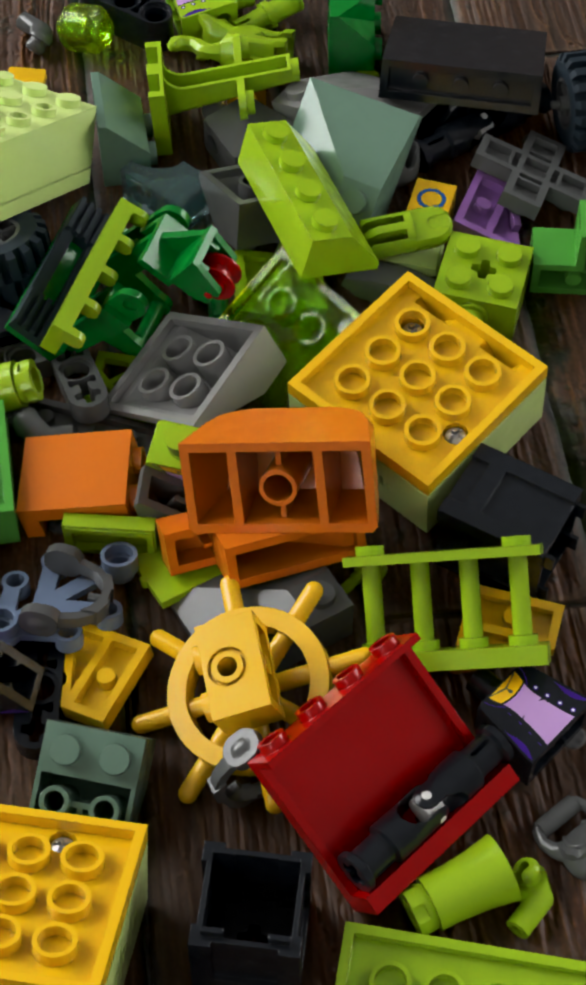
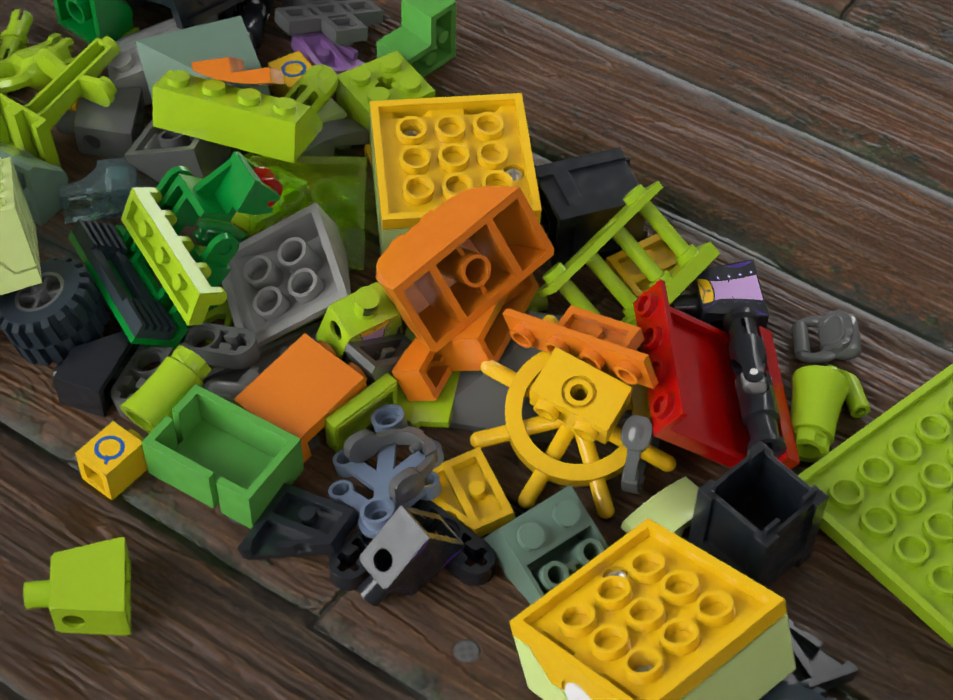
camera: 50 degrees left, 5 degrees down
(190, 831) = (669, 508): none -> yellowish green slope
(299, 634) = (589, 337): none -> orange bracket
(340, 164) = (233, 71): none -> orange slope

